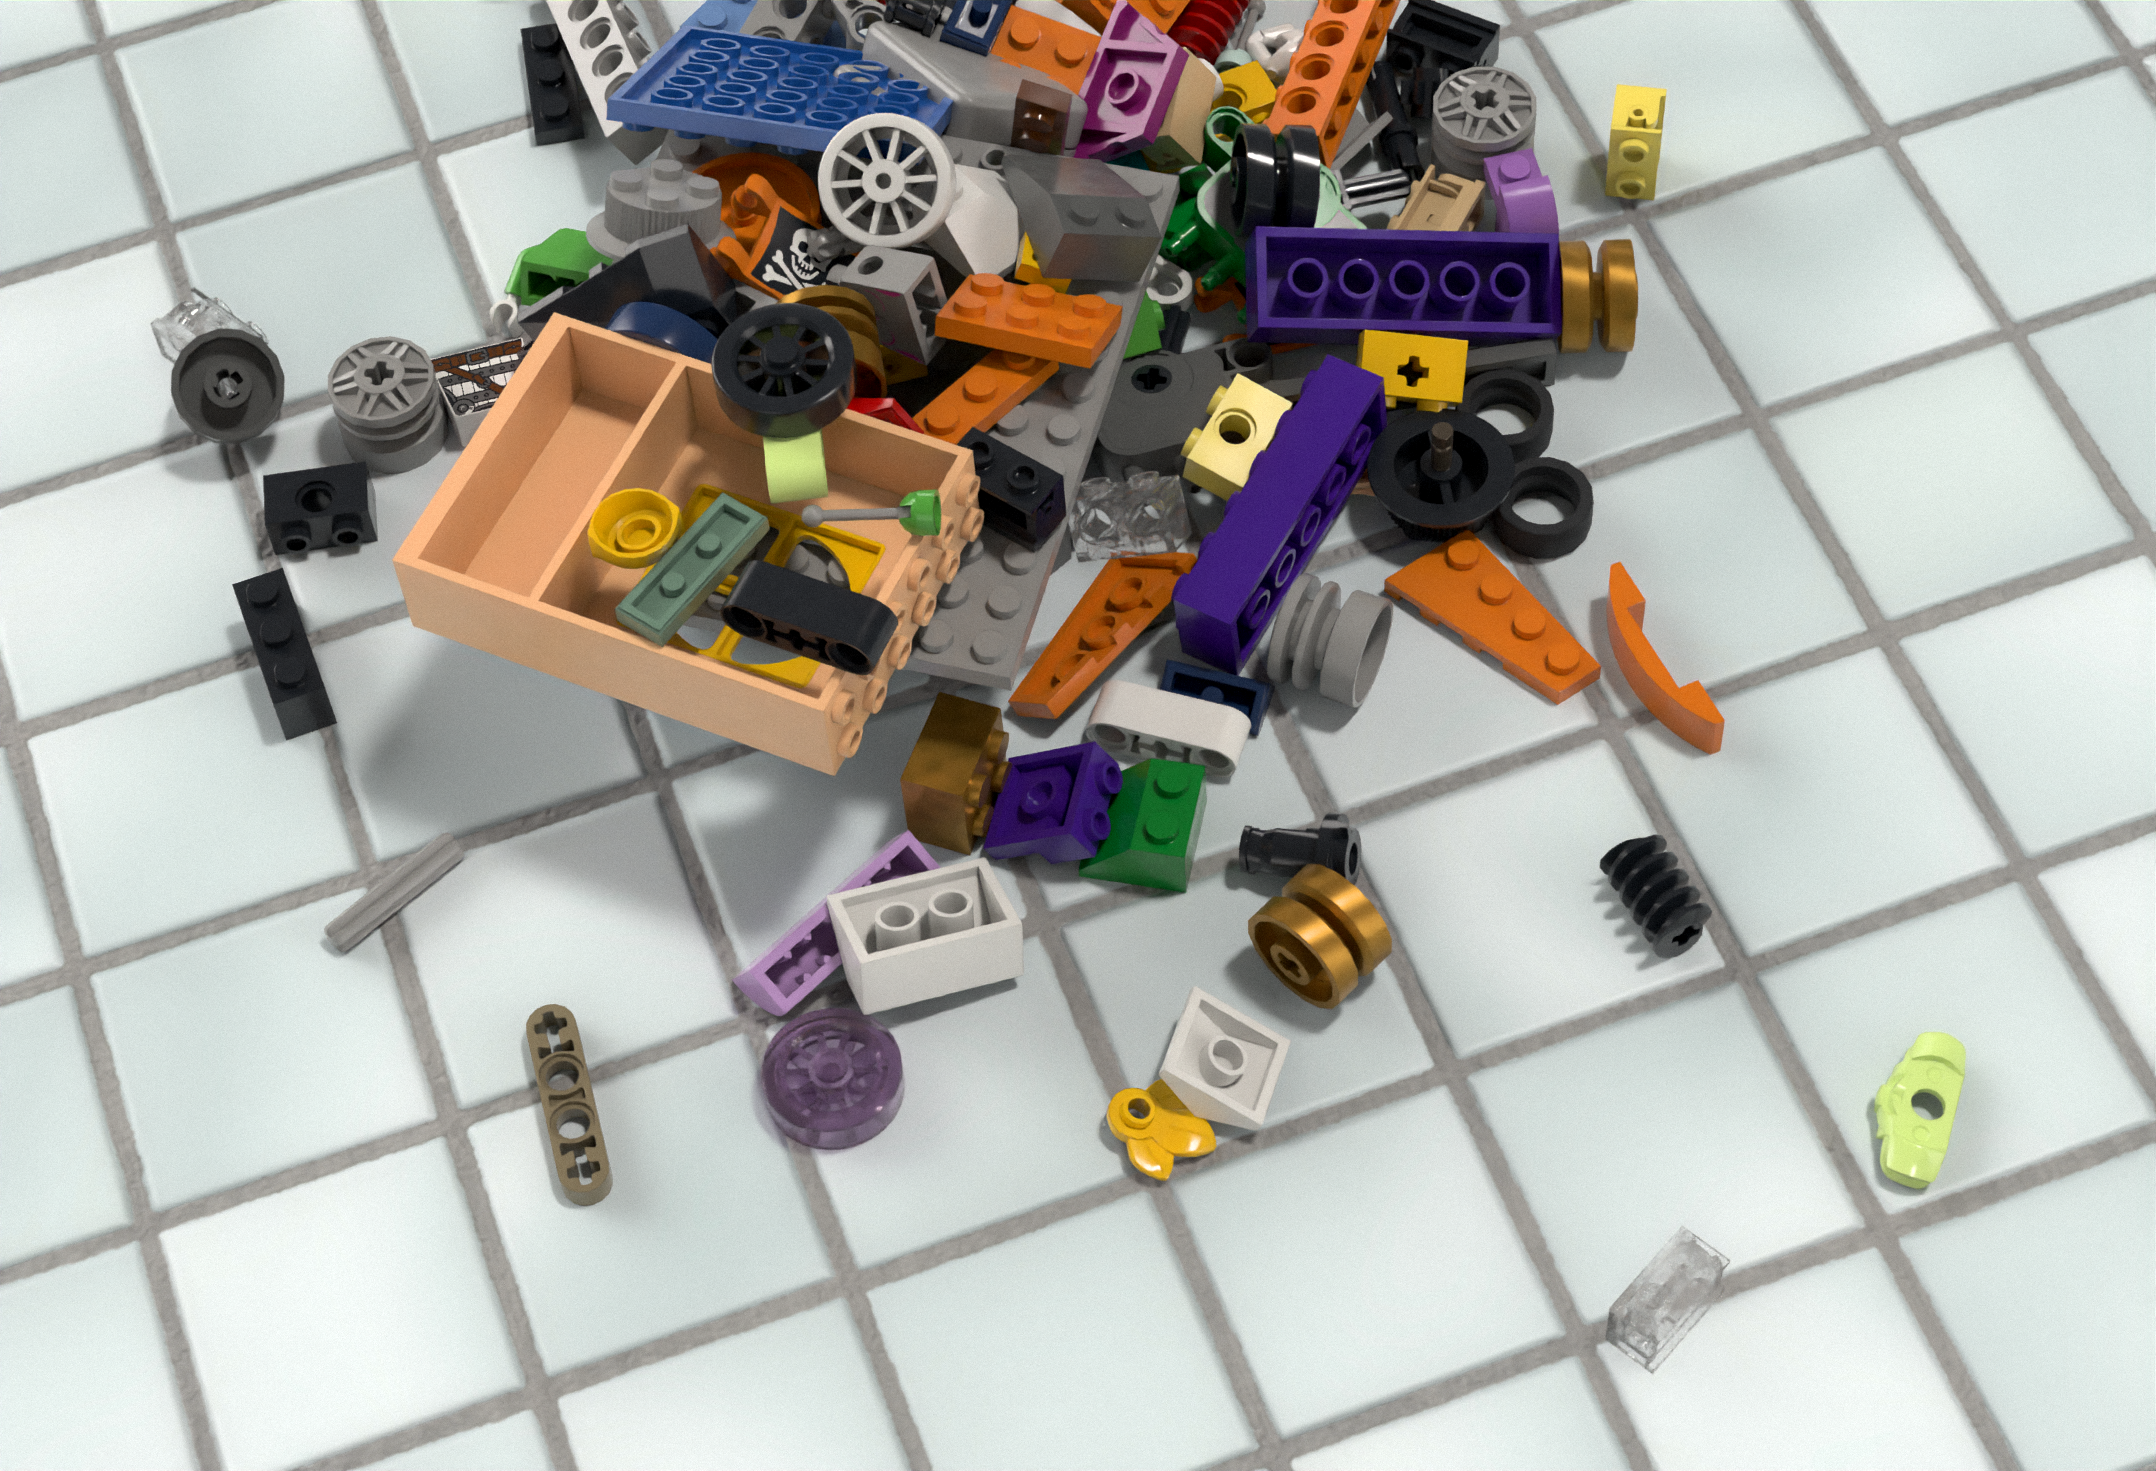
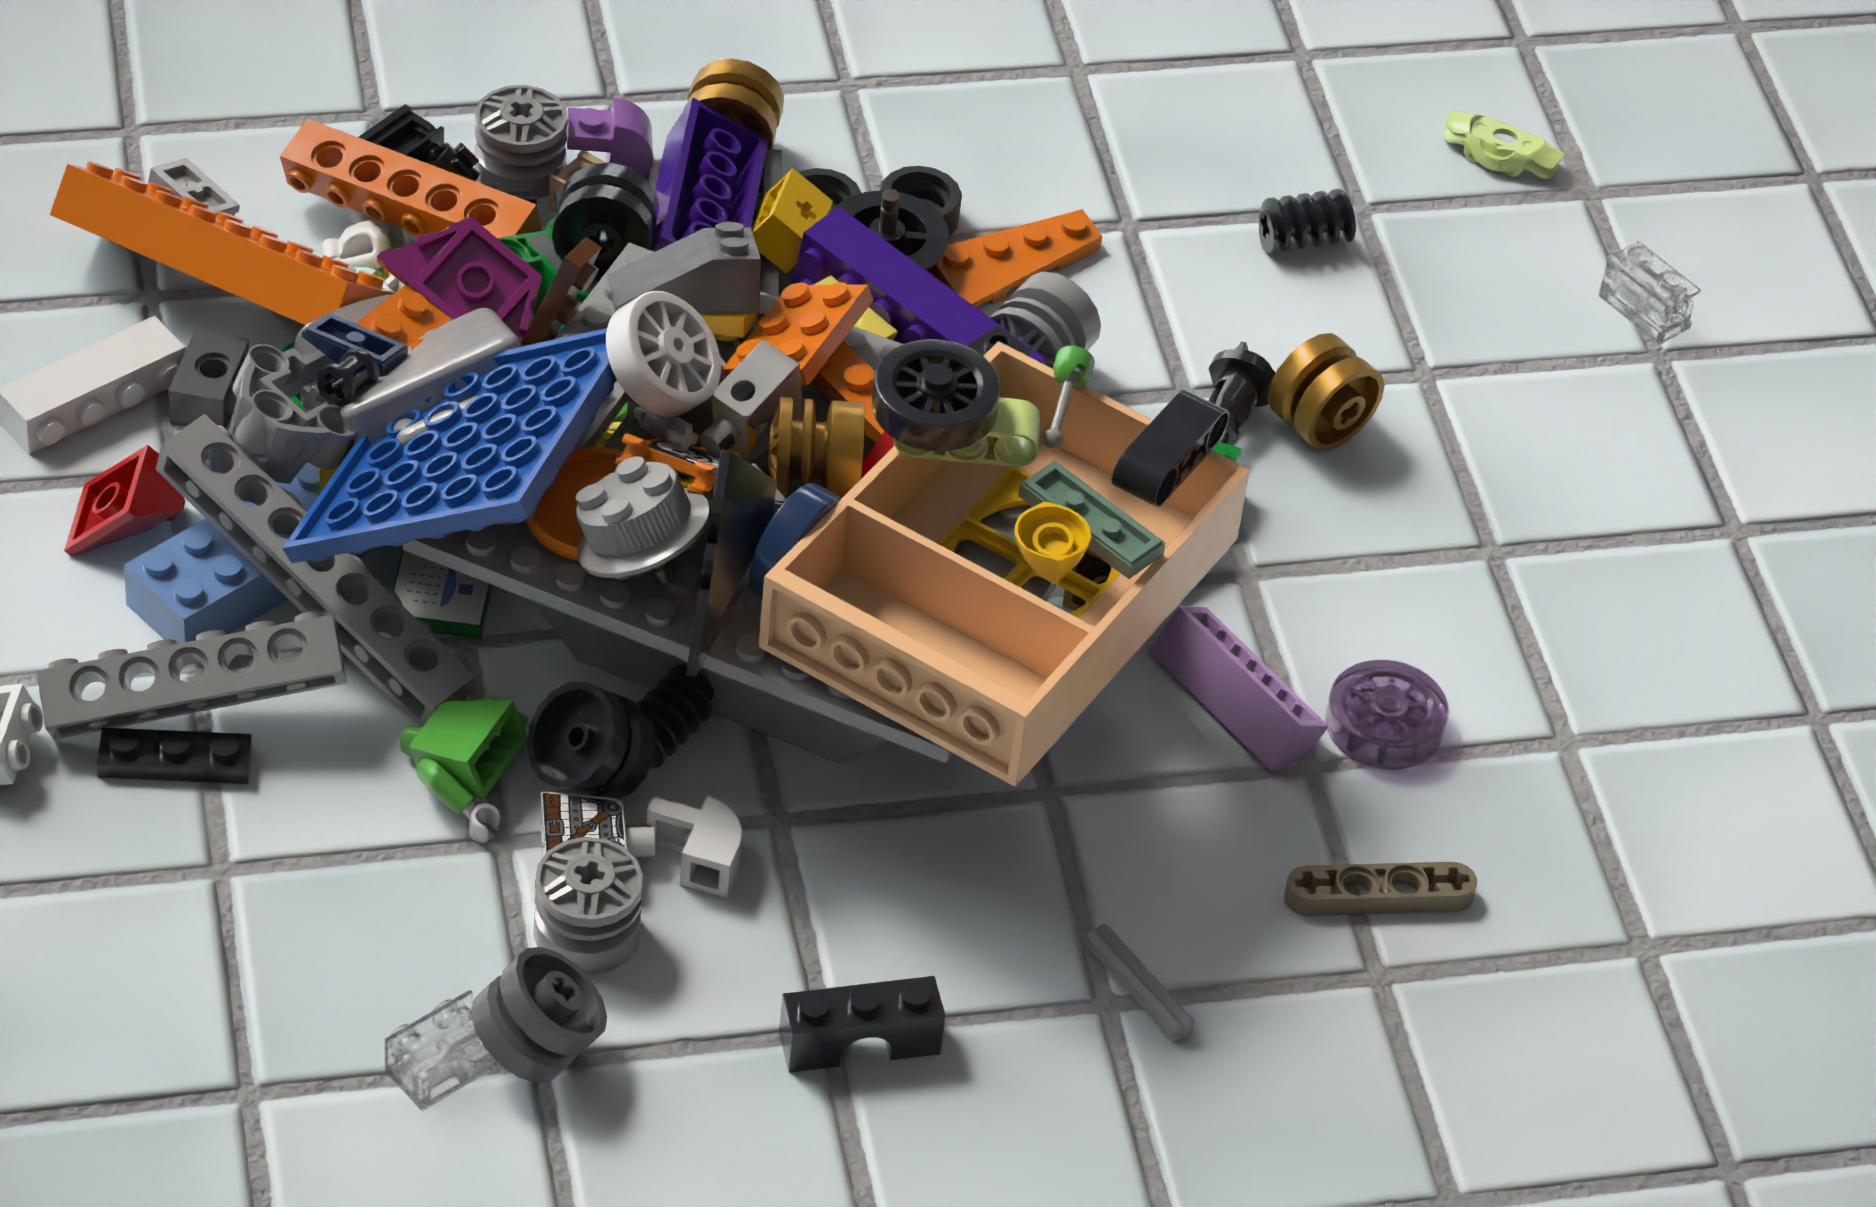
camera: 90 degrees left, 10 degrees down
(320, 508) = (687, 983): black brick -> none
(926, 935) = (1277, 618): white slope -> none
(1163, 1133) = (1456, 534): yellow plate -> none
(1223, 1062) = (1416, 479): white slope -> none
(1635, 142) = (572, 58): light yellow hinge -> none
(1682, 710) = (1085, 186): orange slope -> none

